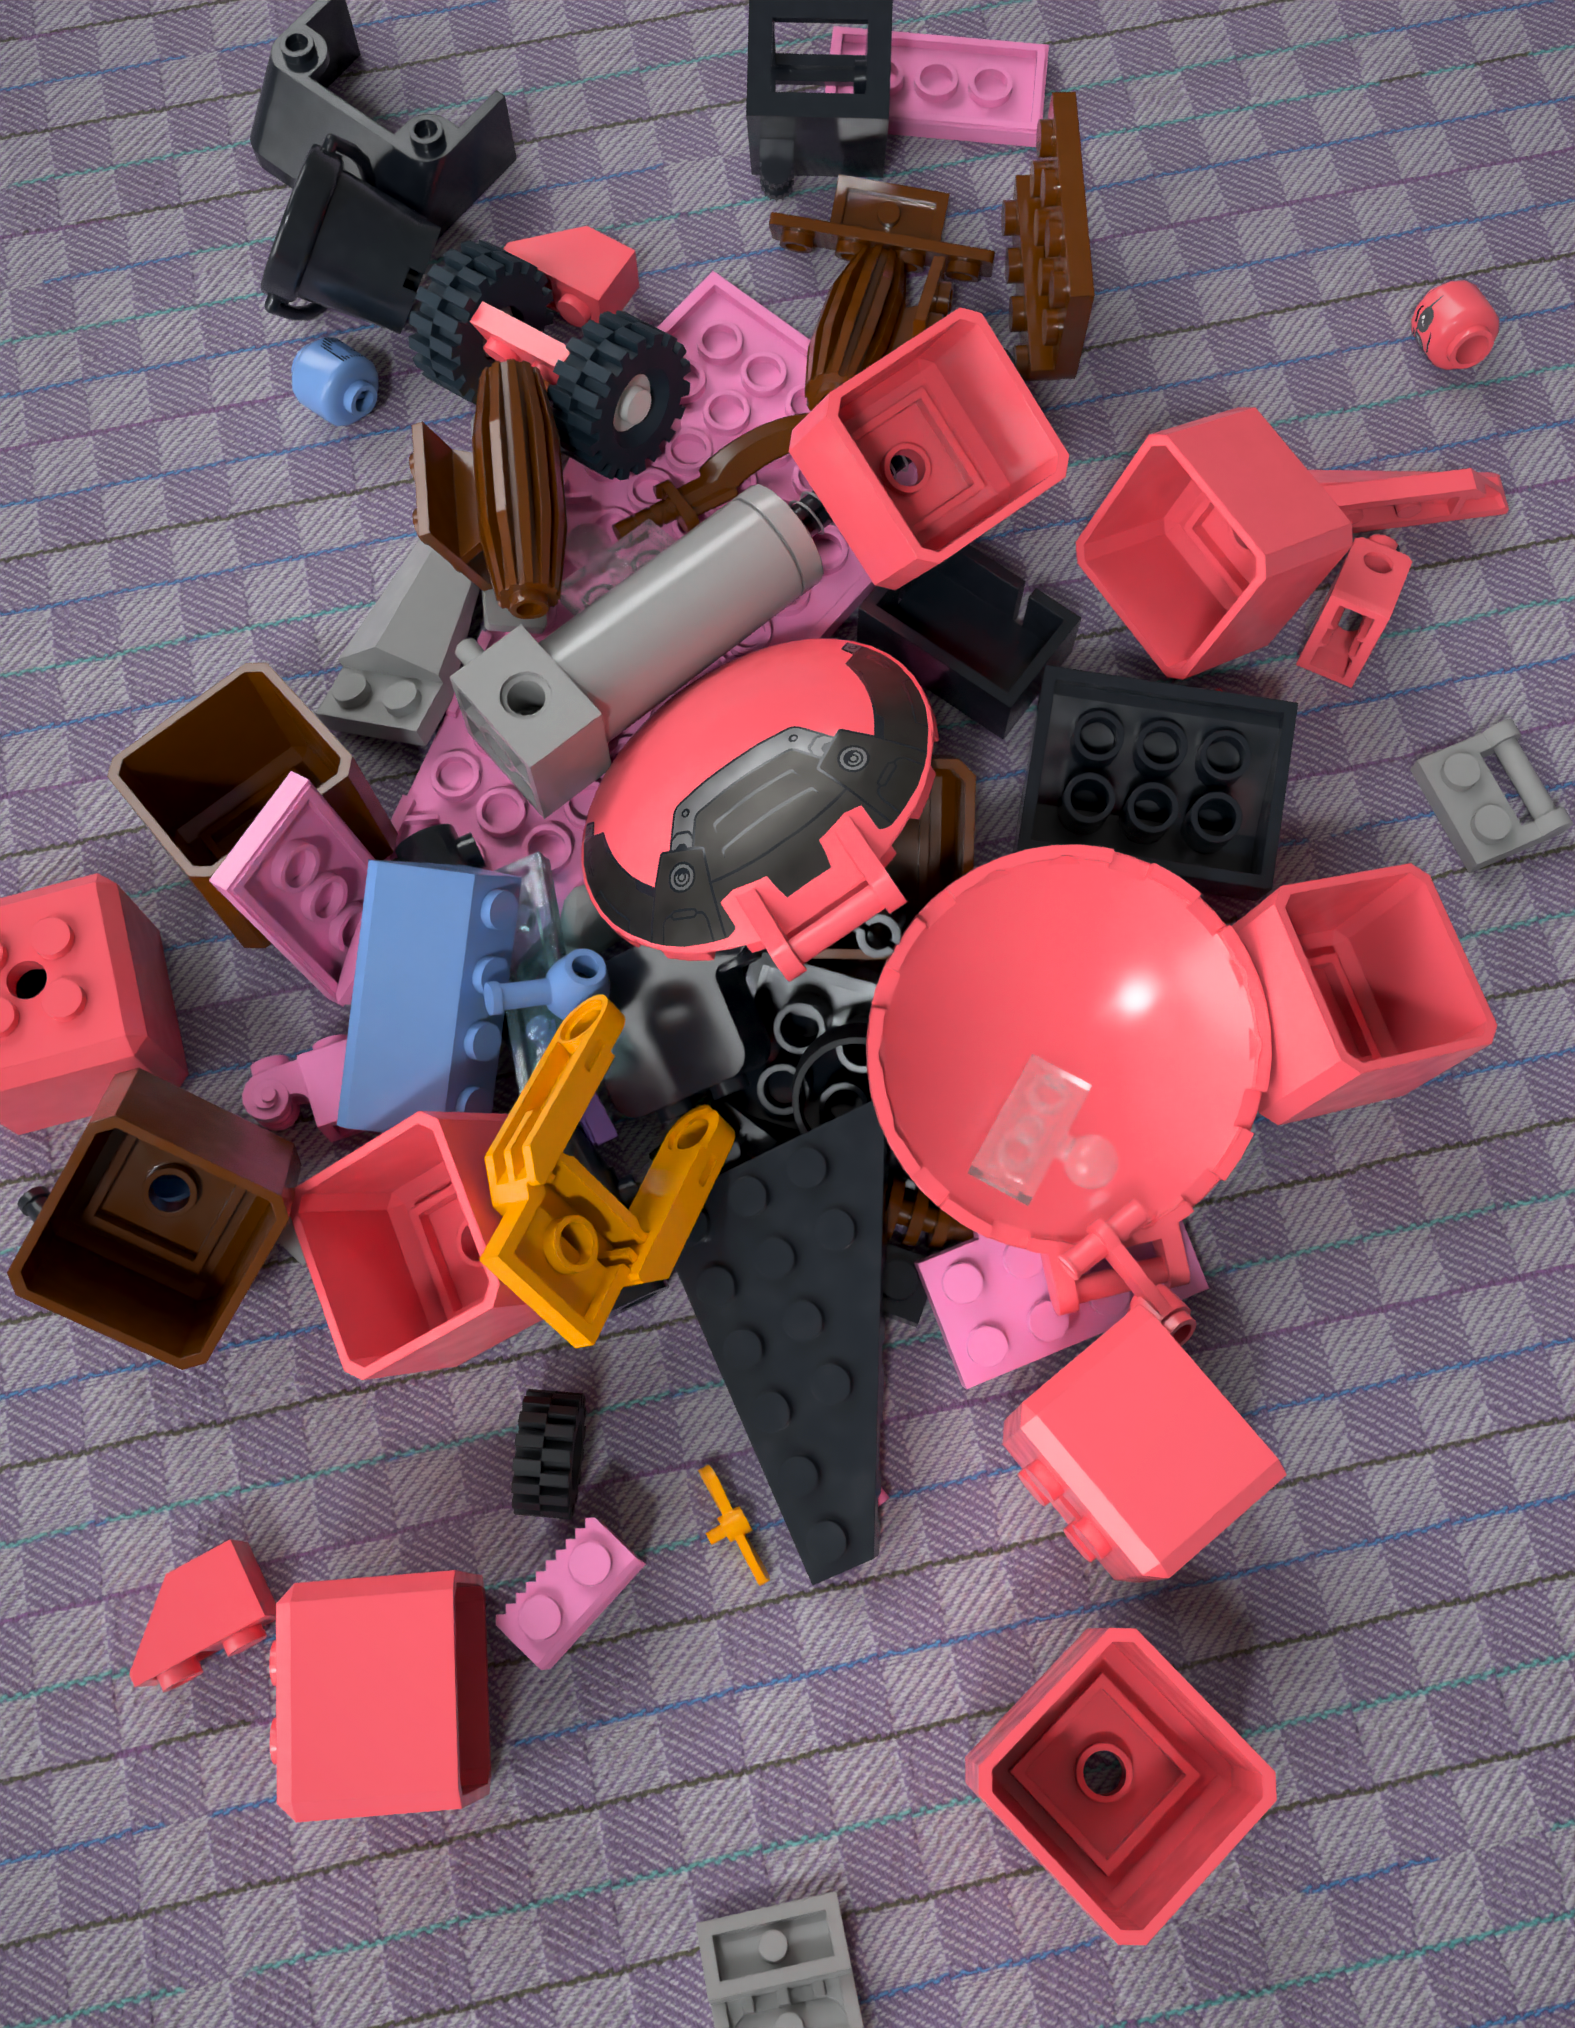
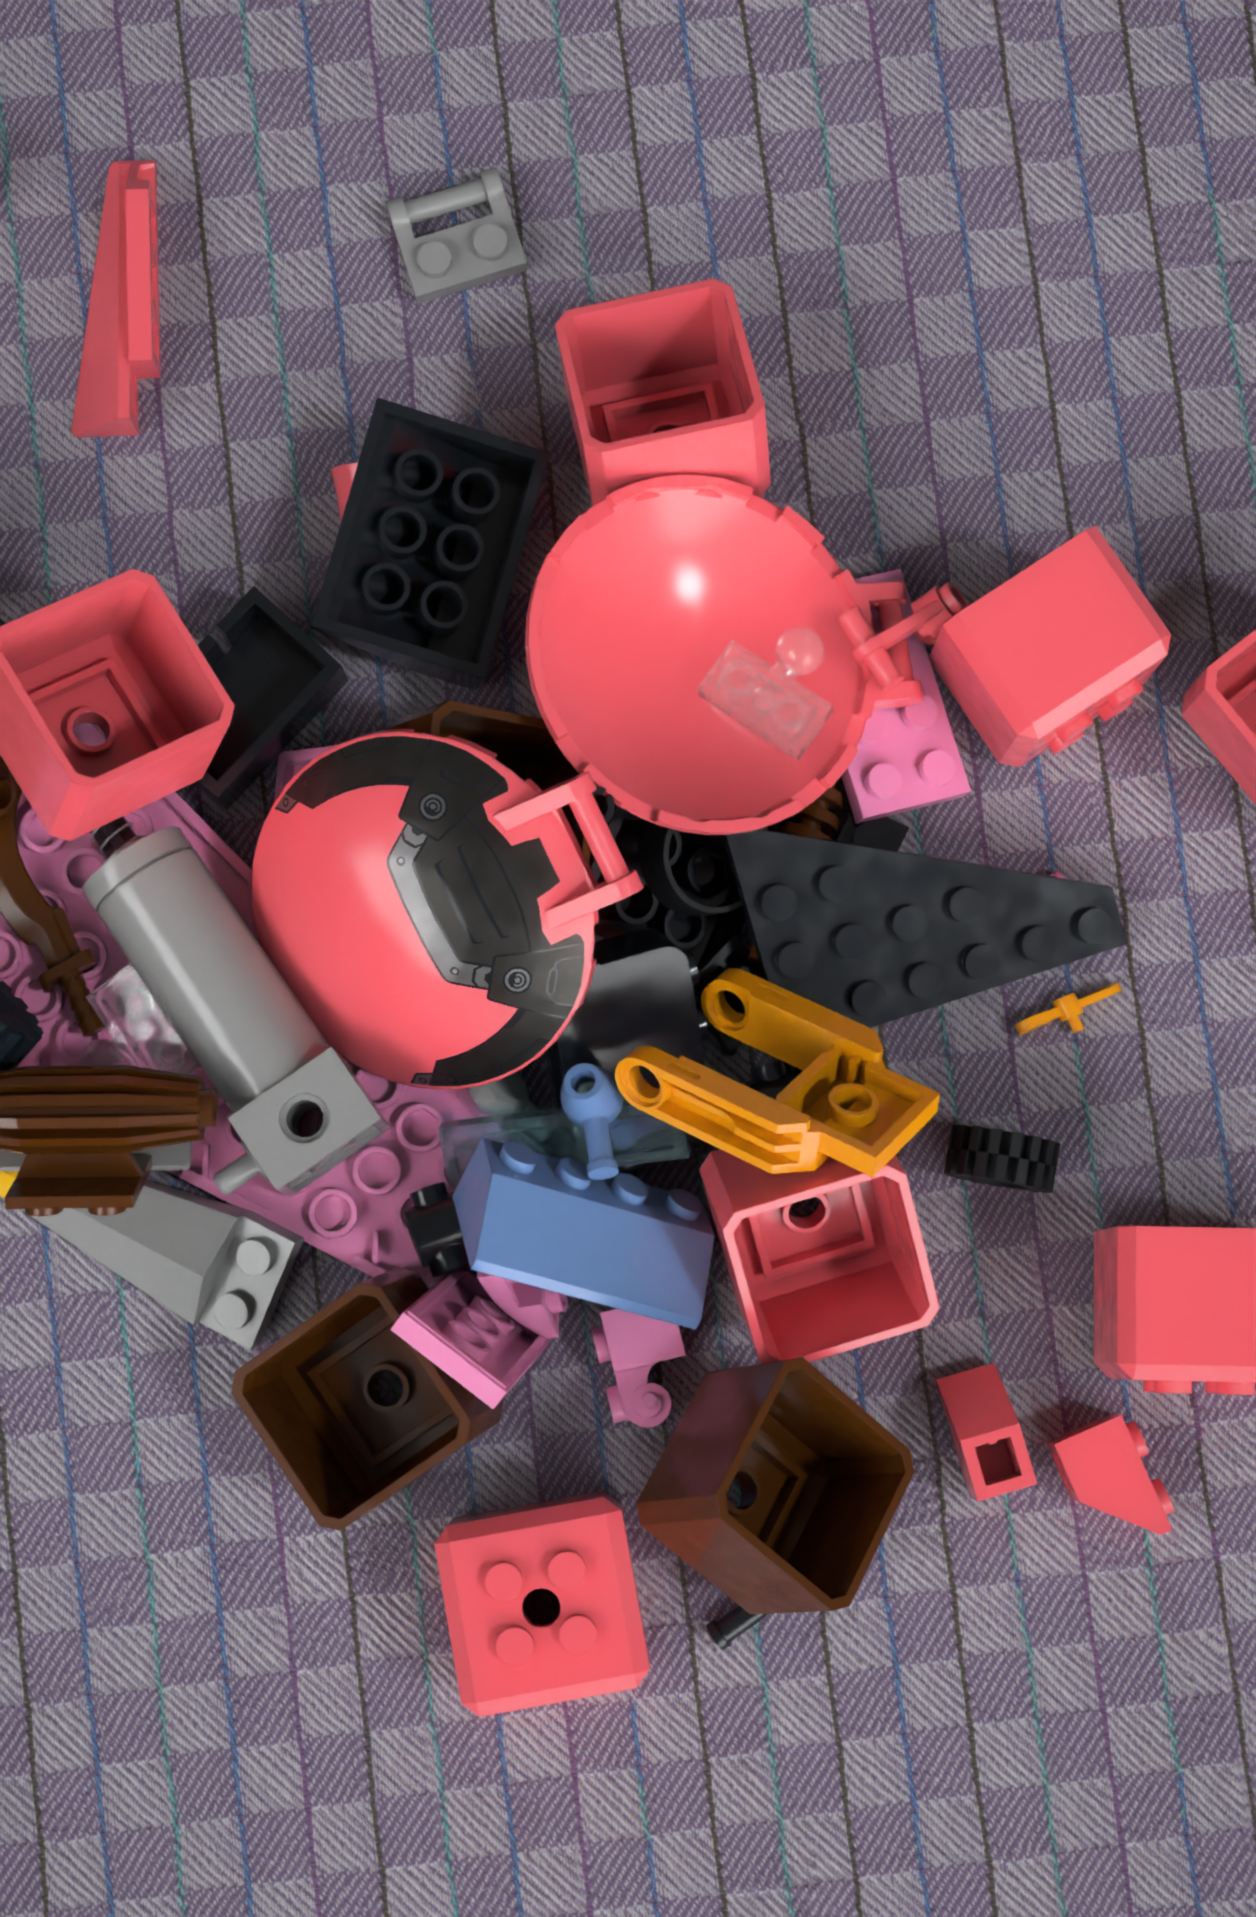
camera: 85 degrees left, 10 degrees up
(243, 1463) = (985, 1432): none -> coral slope
(569, 1593) = (1119, 1151): bright pink brick -> none
(1212, 541) = (196, 449): coral plate -> none
(1367, 585) = (256, 323): coral torso -> none

